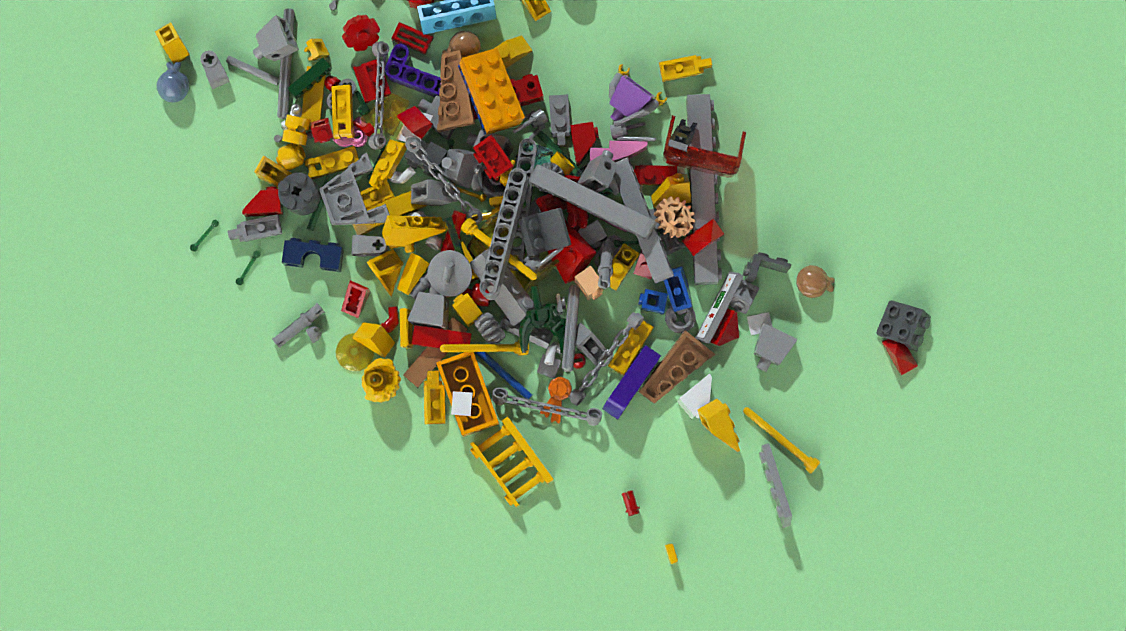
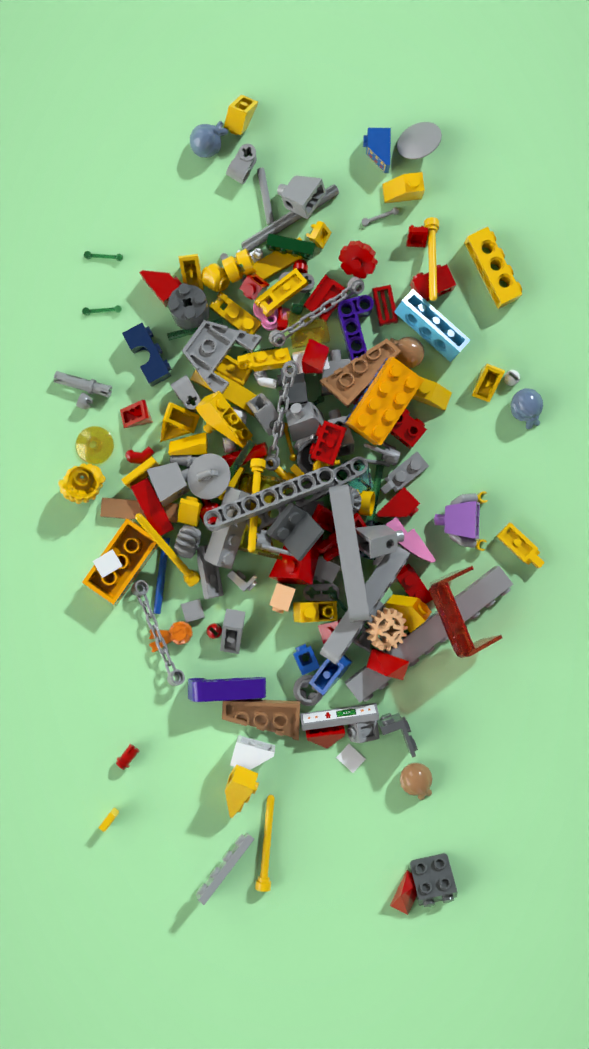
camera: 55 degrees right, 5 degrees up
(256, 229) = (137, 294): light grey hinge -> none
(375, 338) = (114, 453): yellow slope -> none
(434, 399) = (98, 537): yellow hinge -> none
(518, 445) = (111, 632): yellow fence -> none
(540, 318) = (225, 579): dark green bar -> none
(550, 353) = (205, 604): white arm -> none
(571, 328) = (233, 608): light grey axle -> none
(578, 396) = (184, 651): light grey piece -> none
(605, 269) = (301, 603): light grey pin -> none
(619, 130) = (430, 529): light grey plant -> none
(630, 348) = (256, 665): yellow tile -> none
(682, 136) = (460, 589): black hinge -> none
(772, 346) = (337, 784): light grey torso -> none

